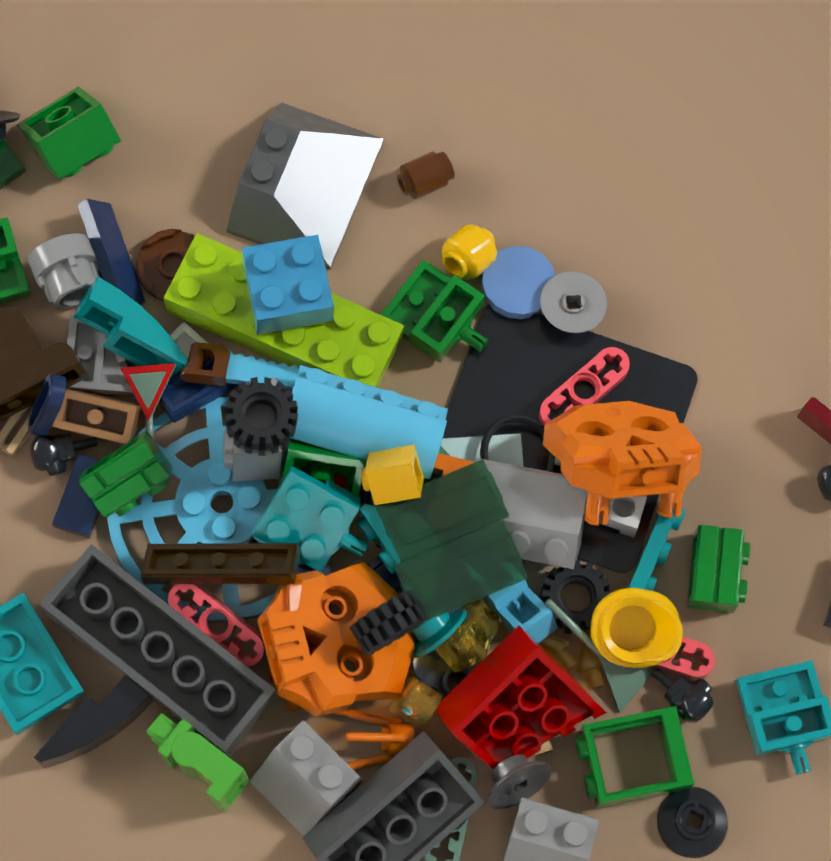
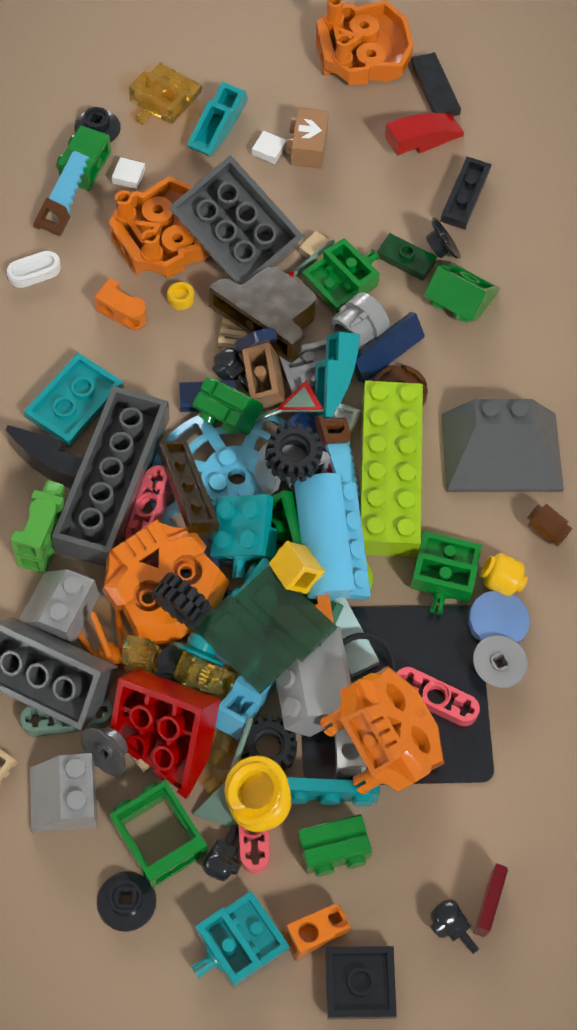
camera: 70 degrees right, 10 degrees down
(287, 284) = (408, 446): dark azure brick -> none
(804, 626) = (316, 930): none -> orange leg

